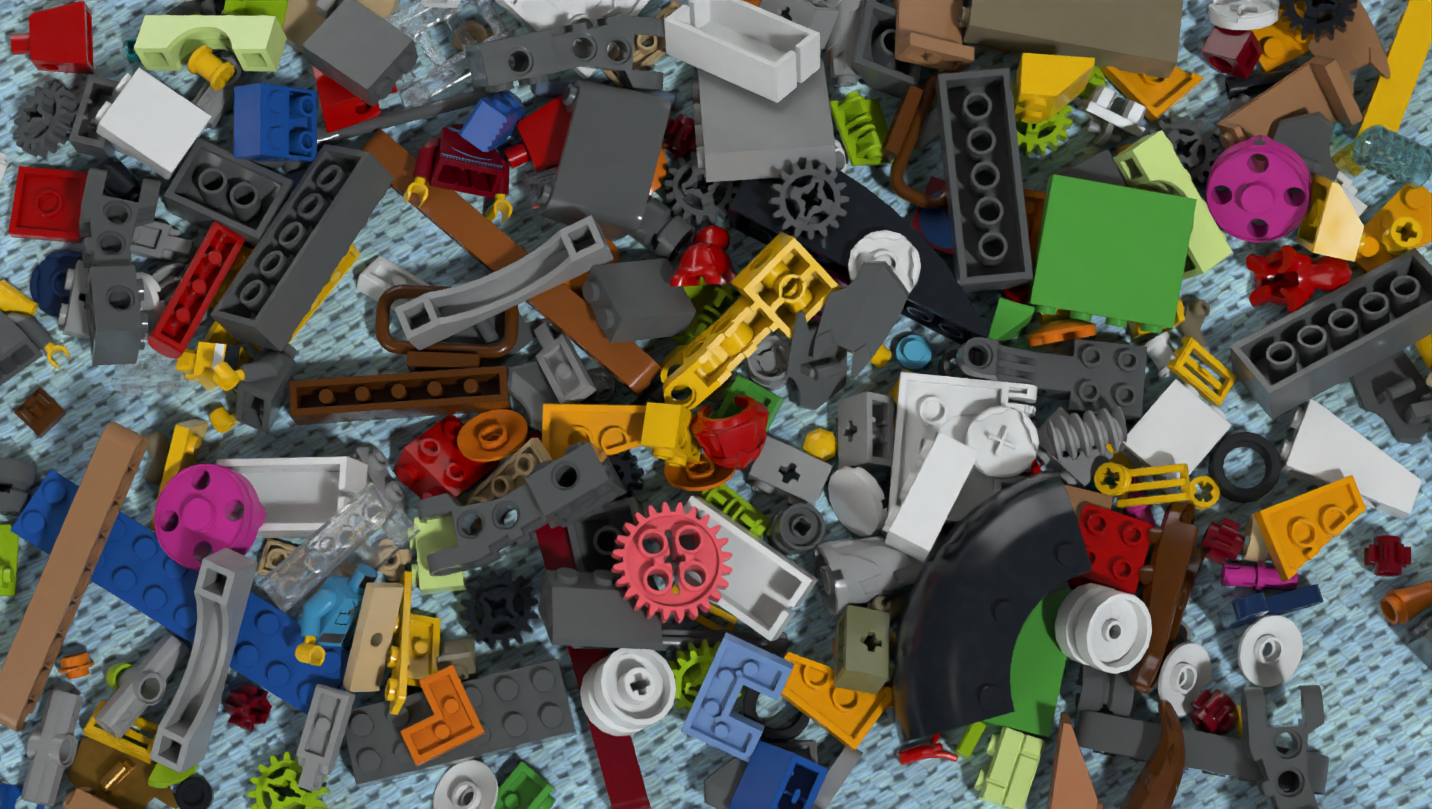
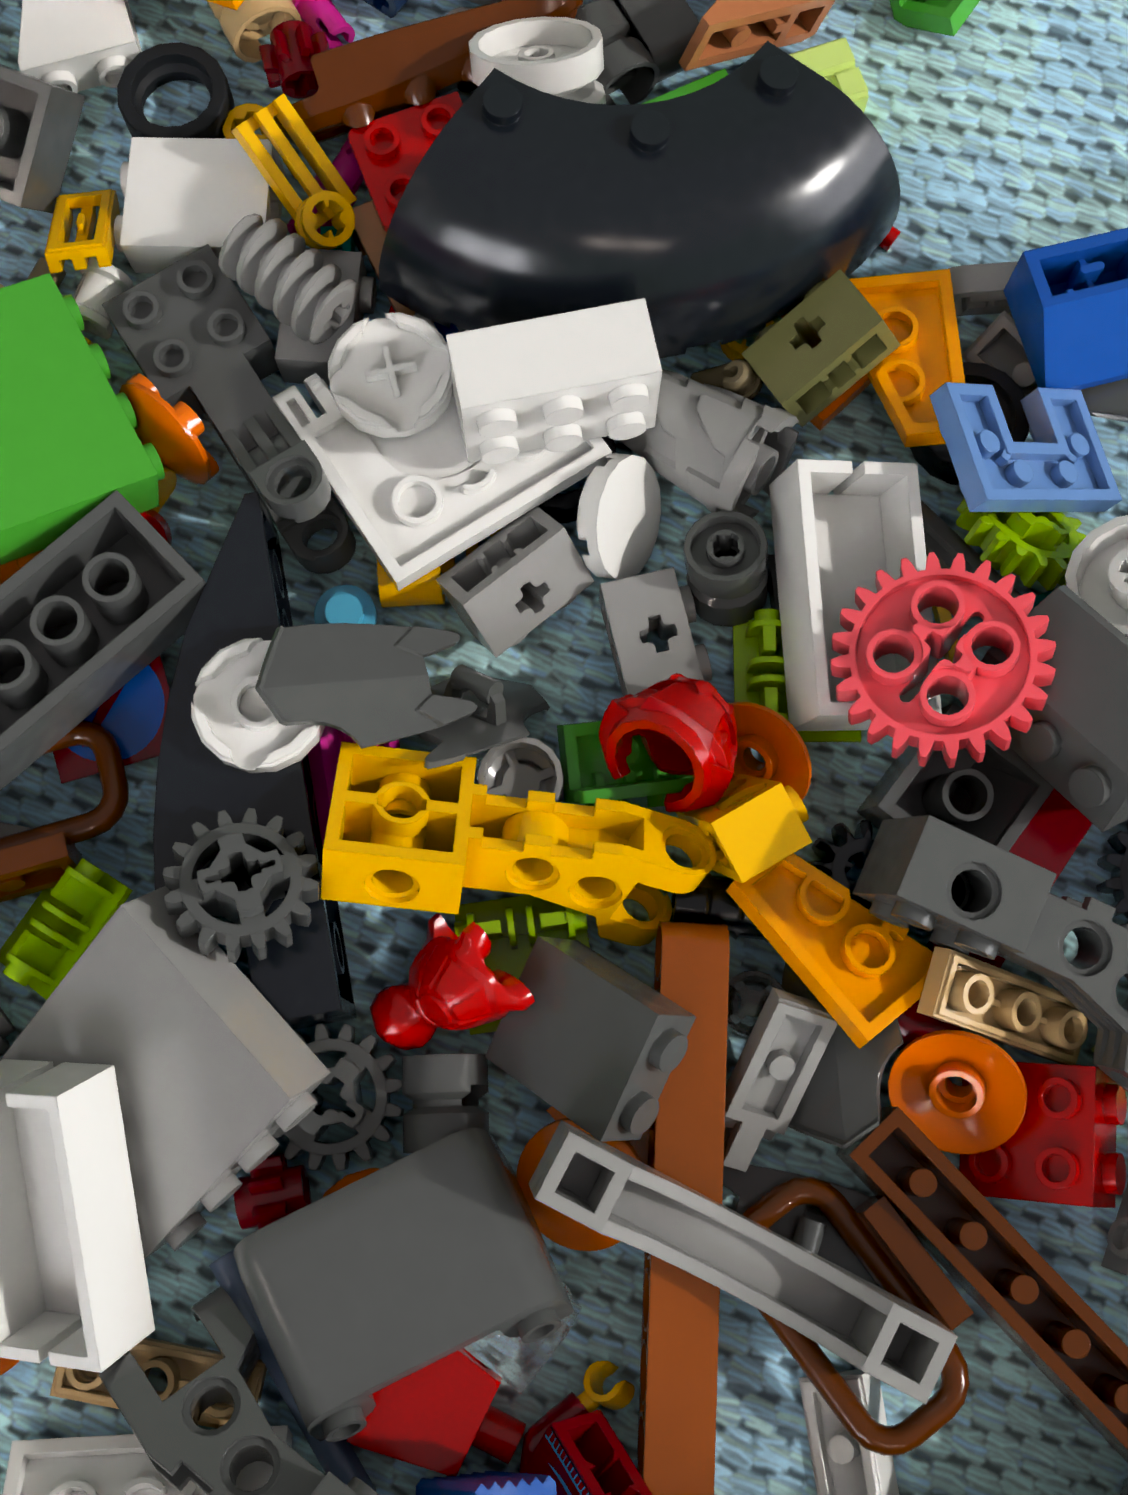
camera: 130 degrees left, 0 degrees up
(821, 445) = (578, 638): yellow tile -> none
(1009, 320) = (202, 503): bright green slope -> none

